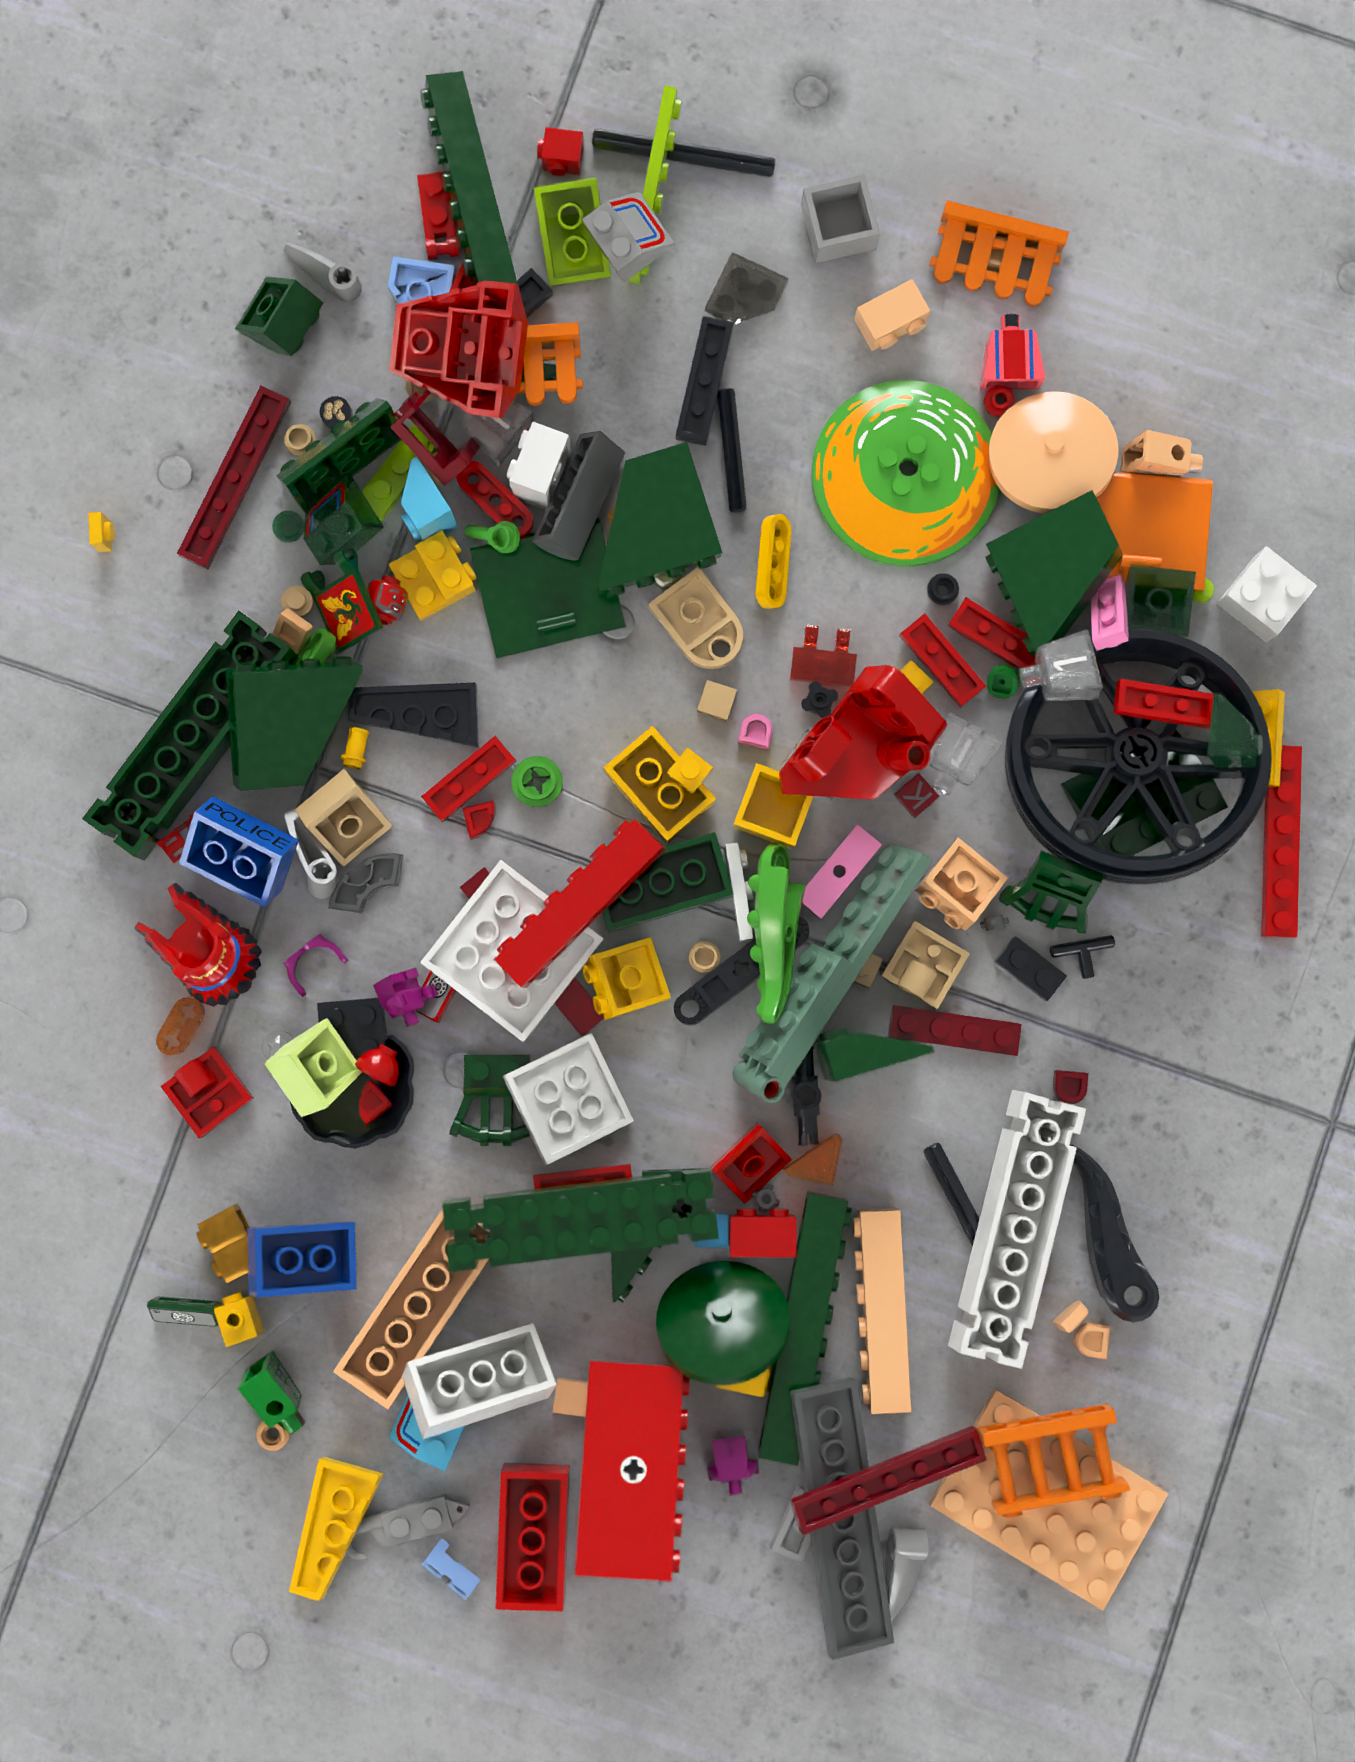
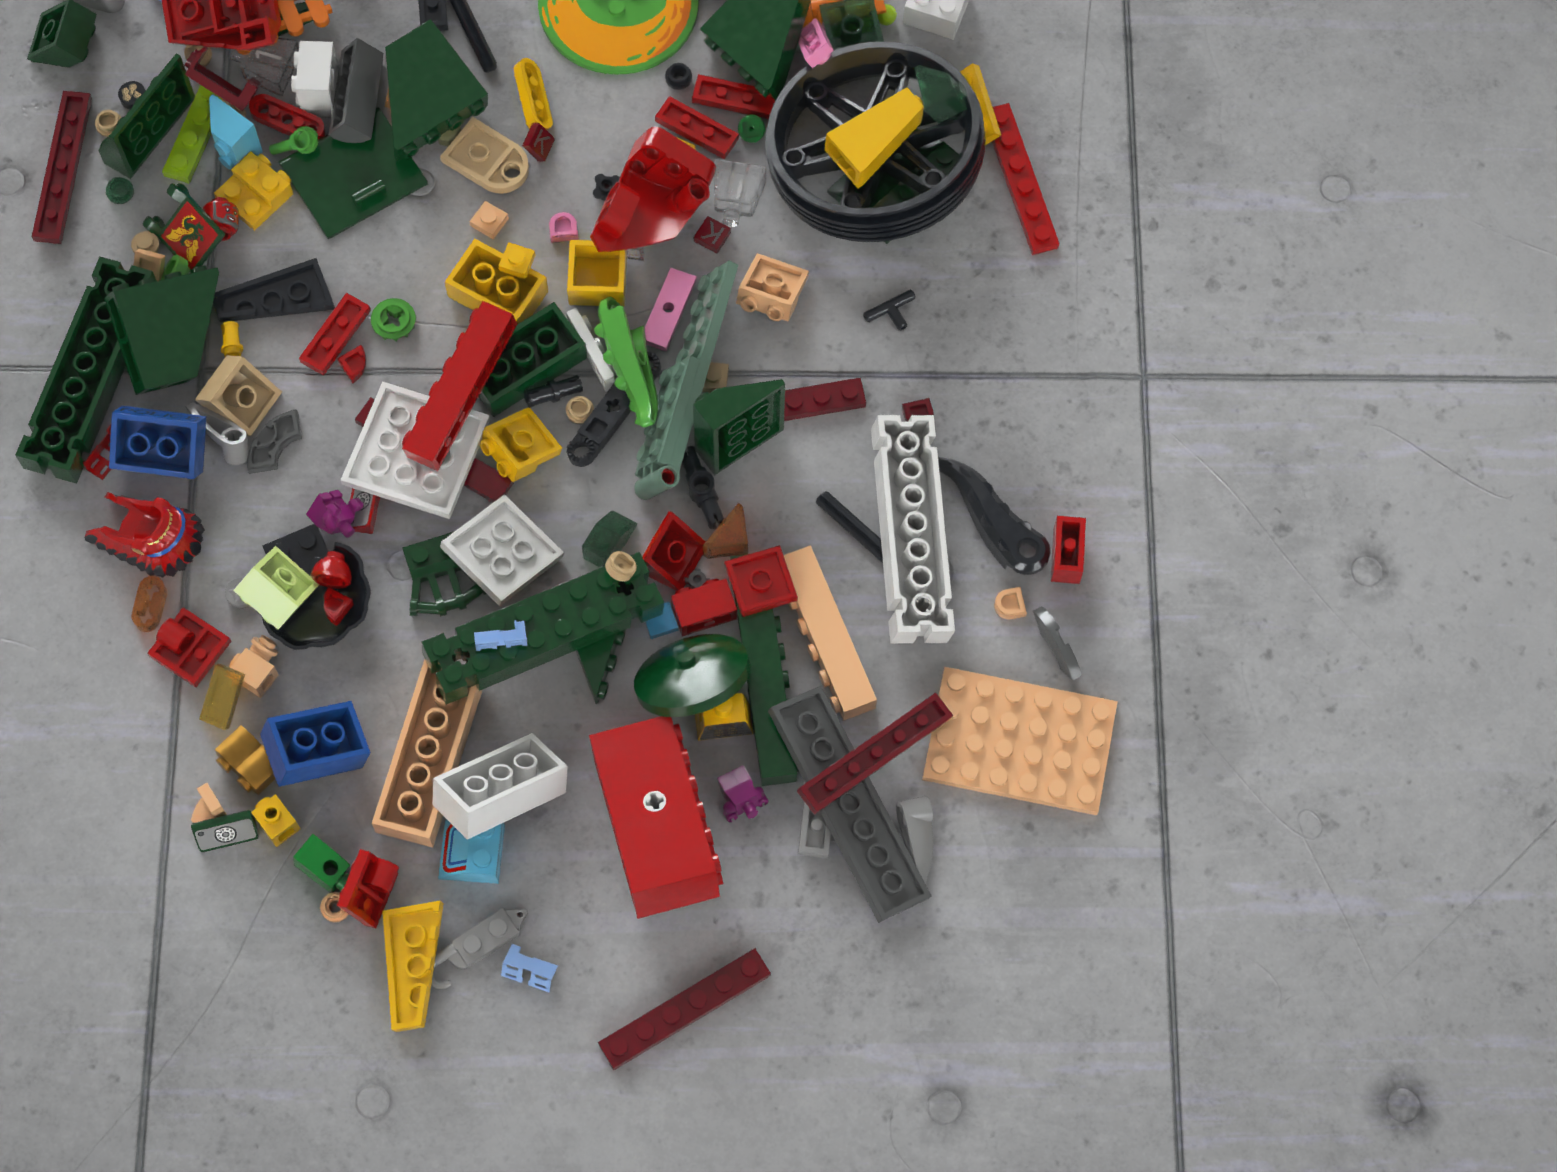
camera: 20 degrees left, 15 degrees down
(176, 1281) = (208, 805): none -> light nougat tile
(223, 1164) = (222, 696): none -> clear yellow tile
(263, 1144) = (257, 671): none -> light nougat brick
(283, 1121) = (264, 647): none -> light nougat plate
(291, 962) = (244, 502): magenta cap -> none
(313, 1432) = (368, 888): none -> red plate
(340, 521) = (162, 165): clear green slope -> none
(522, 1228) = (496, 638): none -> light blue piece
(532, 1537) = (590, 908): red brick -> none
(570, 1397) = (586, 792): light nougat tile -> none
(596, 1669) = (684, 1009): none -> dark red plate
(678, 695) = (489, 220): none -> light nougat plate
(682, 928) = (553, 391): none -> black pin
(684, 1191) = (621, 566): none -> tan tile
(688, 1119) = (607, 537): none -> clear green slope
(716, 700) = (522, 214): tan tile -> none
(761, 621) = (538, 142): none -> dark red tile
(824, 666) = (605, 160): clear red plate -> none
(832, 1236) = (761, 581): none -> red tile
(925, 964) = (764, 356): tan plate -> none
(994, 922) = (810, 309): dark grey piece -> none
(1030, 968) = (853, 335): black plate -> none
(1060, 880) = (850, 248): dark green plate -> none
(1063, 1425) = (1007, 667): orange fence -> none
(1065, 669) = (793, 89): clear torso -> none
(1071, 1317) = (984, 589): light nougat tile -> none
(1126, 1397) = (1063, 653): none -> dark grey tile
(1132, 766) = (874, 135): none -> yellow slope
(1163, 703) = (875, 88): red plate -> none
(1178, 1309) = (1068, 549): none -> red brick

